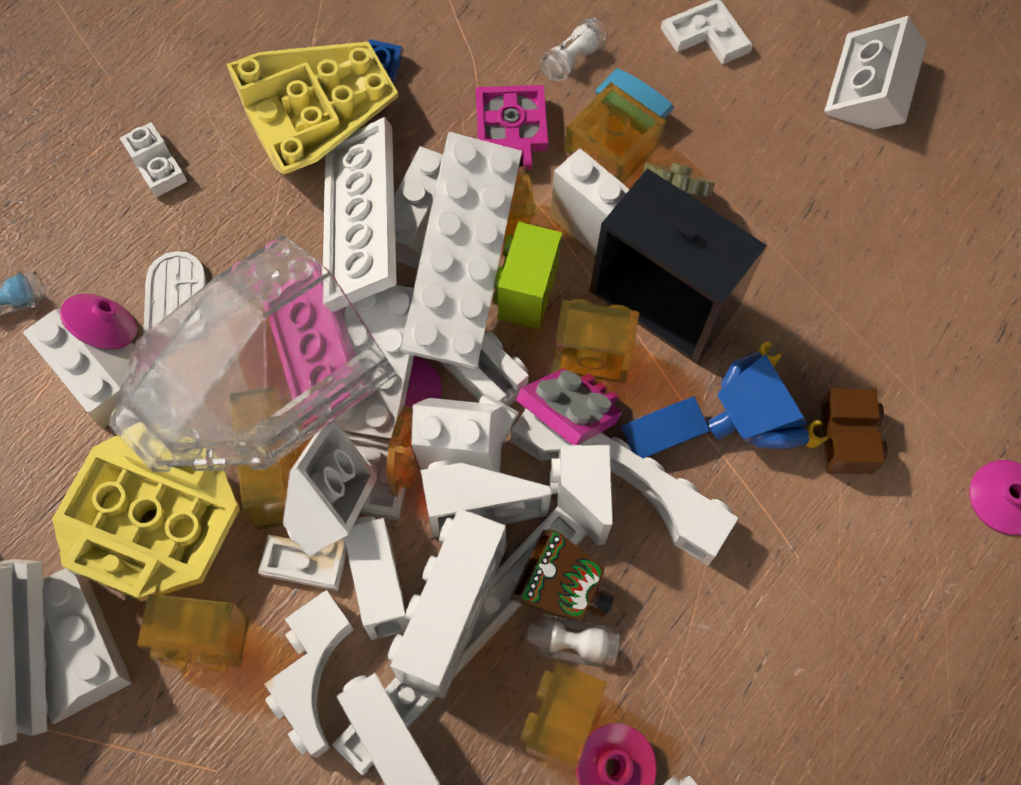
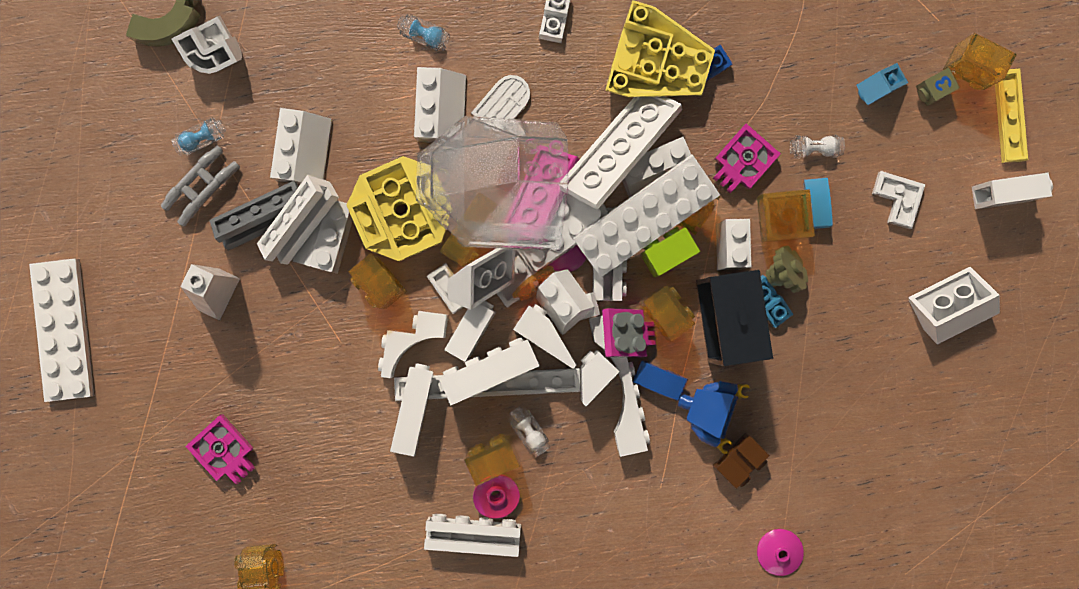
camera: 50 degrees right, 20 degrees up
(98, 321) = (450, 89): dark pink dish -> none
(561, 580) = (546, 403): torso -> none

